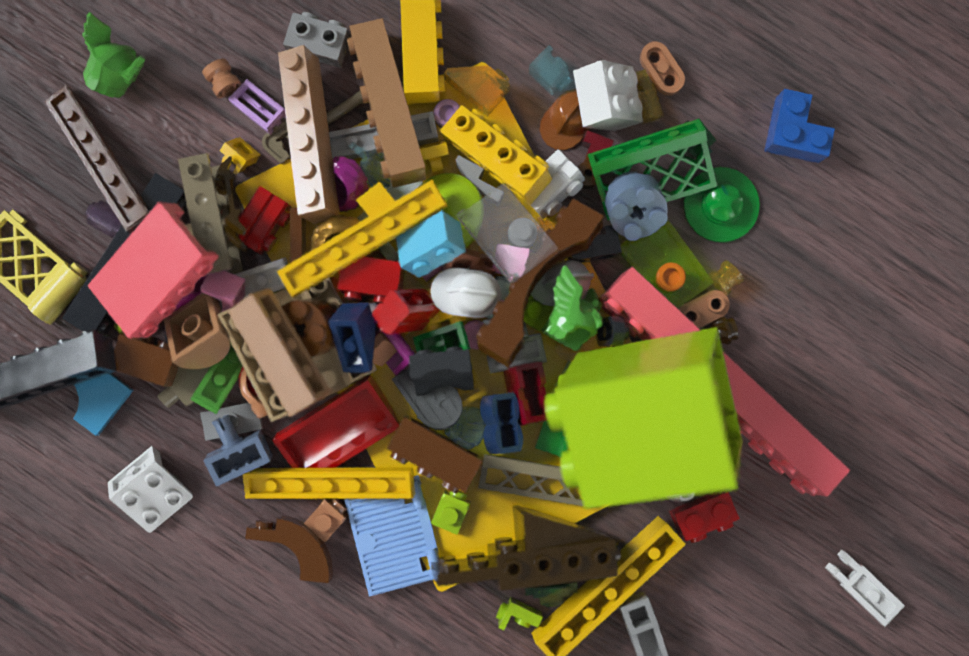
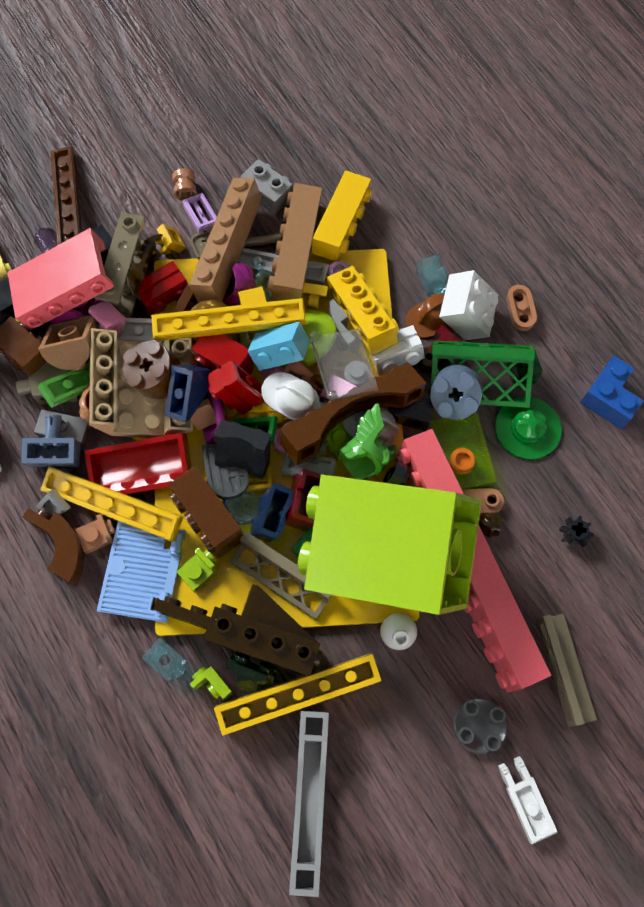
camera: 25 degrees right, 15 degrees down
(110, 65) = (109, 144): bright green helmet -> none
(268, 507) = (53, 503): none -> light grey tile
(279, 351) = (122, 371): brick -> none
(456, 603) = (157, 652): none -> clear light blue brick
(479, 85) = (373, 261): clear yellow slope -> none
(648, 96) = (500, 329): clear yellow hinge -> none
(704, 515) = (409, 668): red brick -> none
(726, 277) = (509, 482): clear yellow wheel -> none
(794, 537) = (480, 726): none -> dark grey dish
(815, 293) = (570, 535): none -> black gear
(855, 446) = (566, 670): none -> dark tan fence

